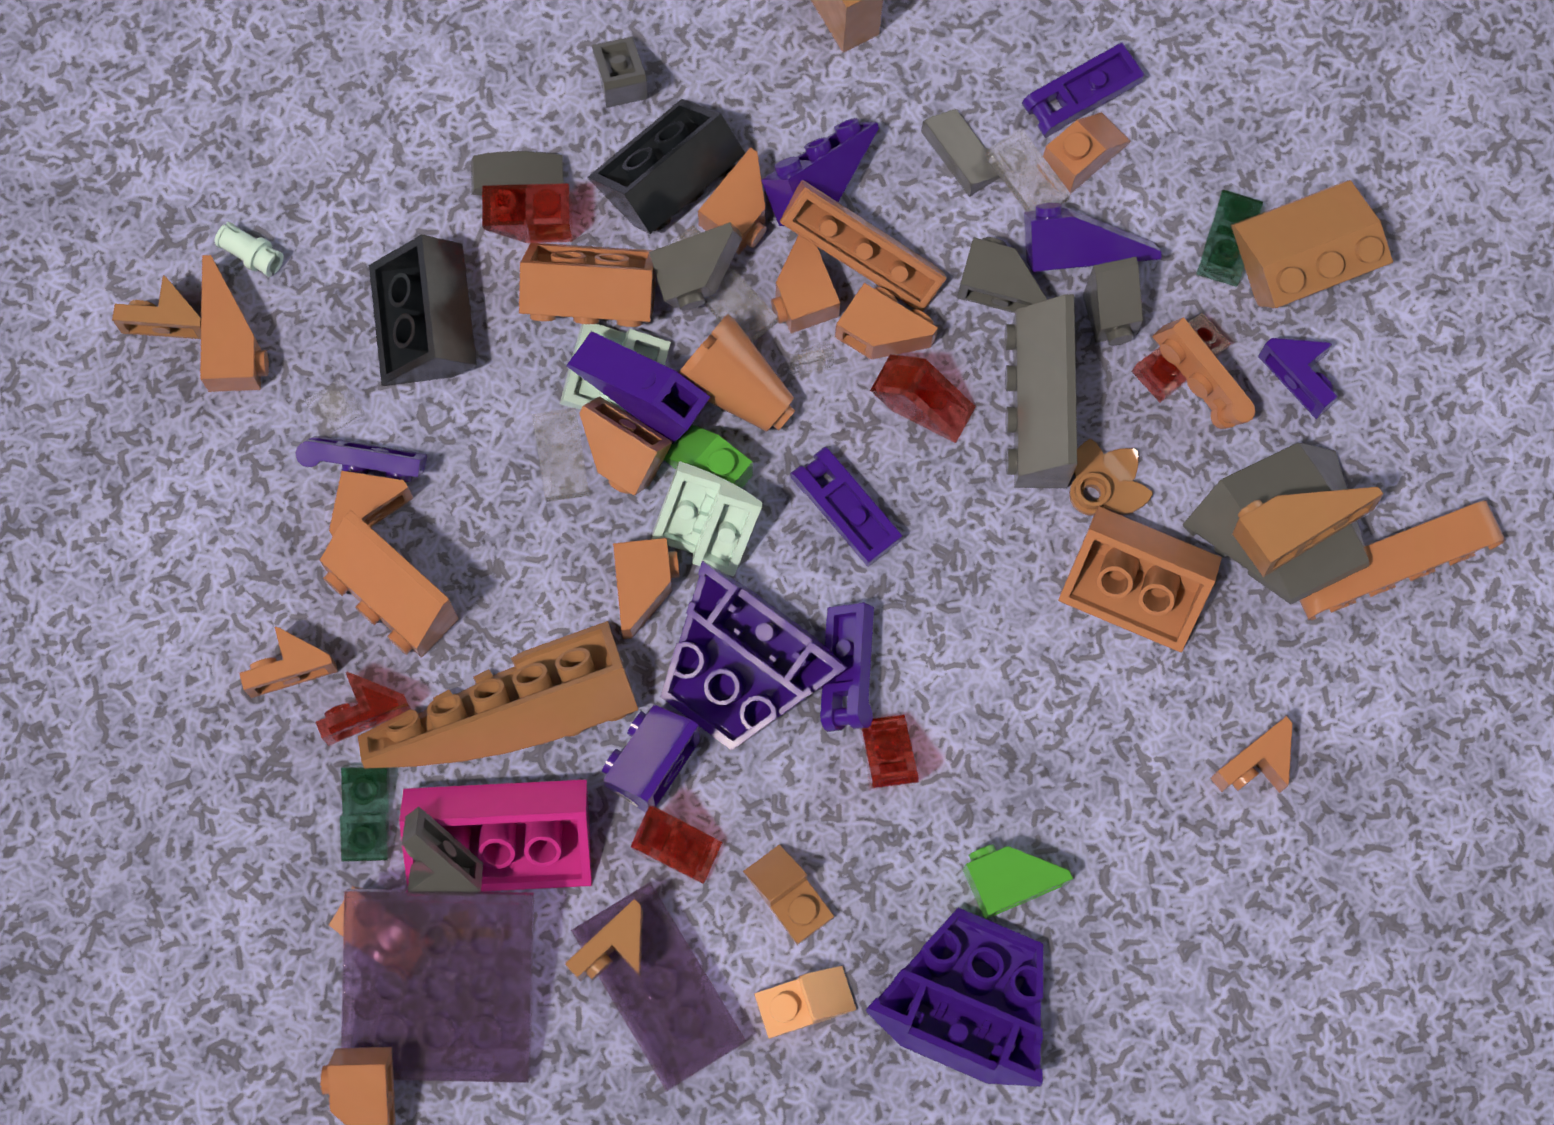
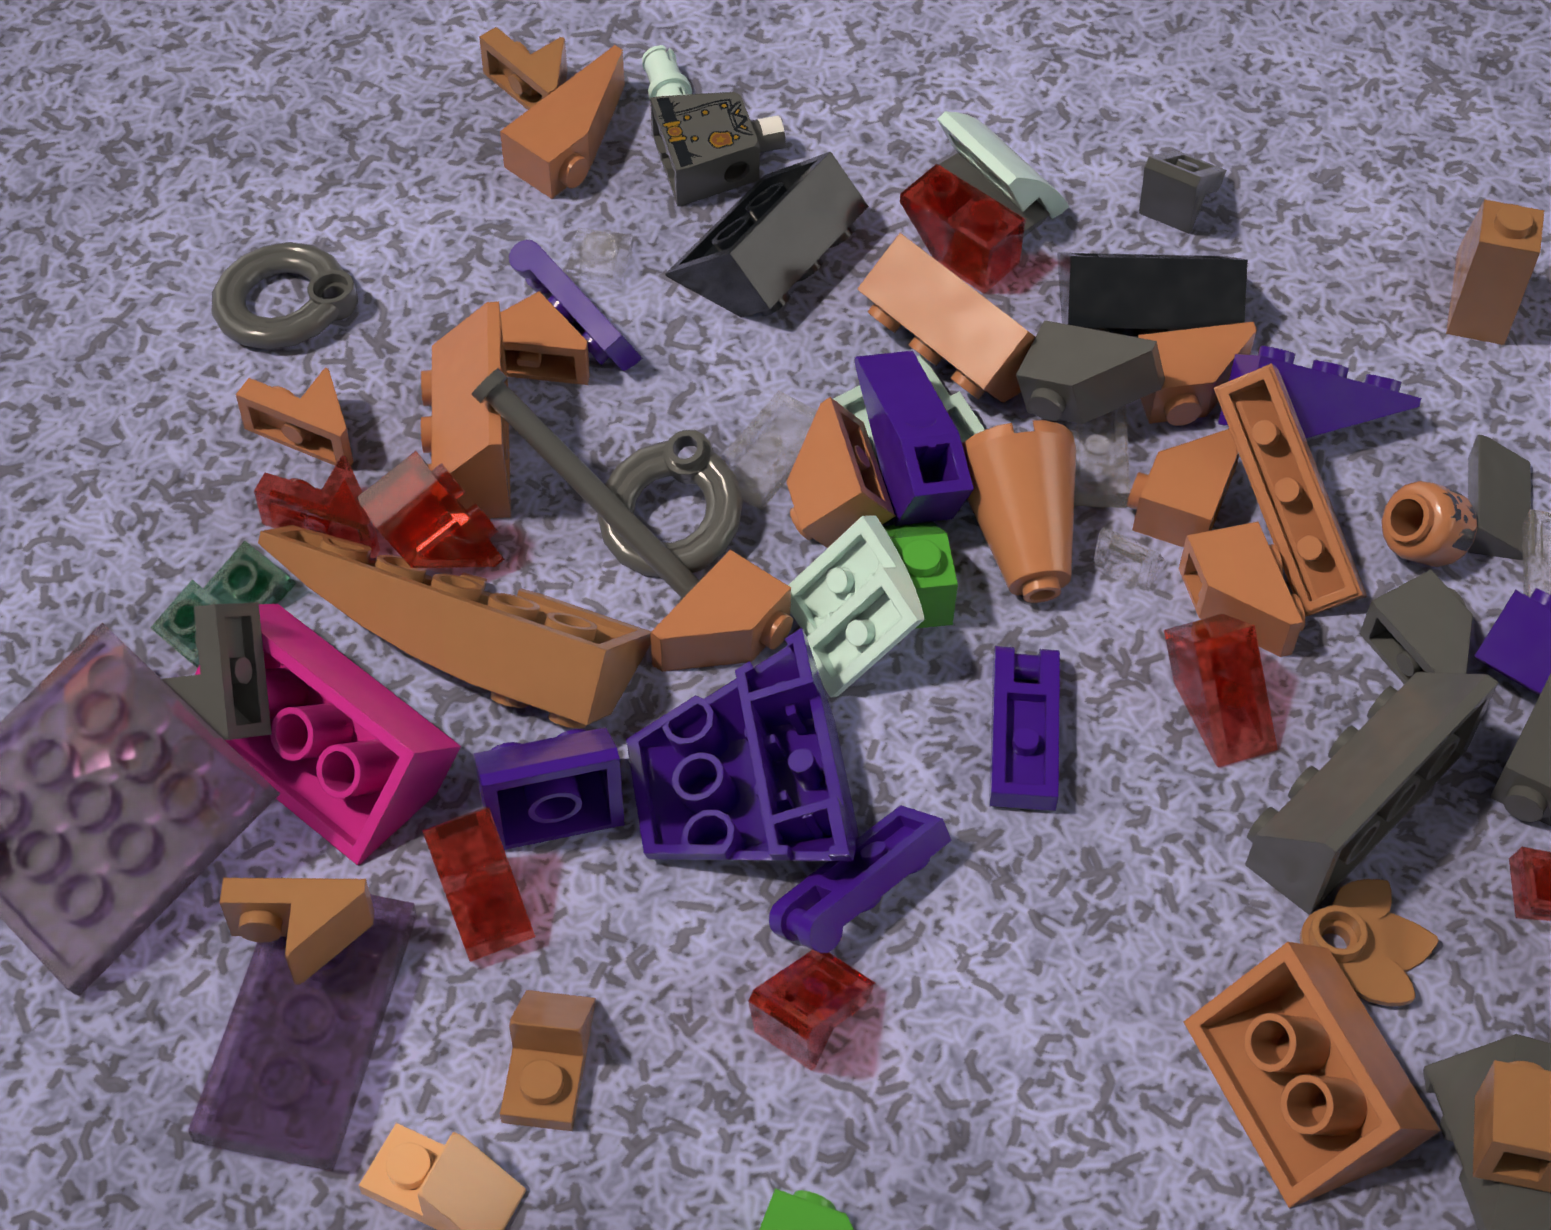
camera: 45 degrees right, 20 degrees down
(213, 610) = (329, 290): none -> dark grey piece
(322, 274) = (710, 143): none -> dark grey torso
(415, 573) = (585, 482): none -> dark grey bar
(437, 669) = (426, 522): none -> clear red slope
(513, 148) = (1000, 163): none -> light aqua slope
(555, 504) = (704, 469): none -> dark grey piece
(944, 203) = (1429, 524): none -> nougat head

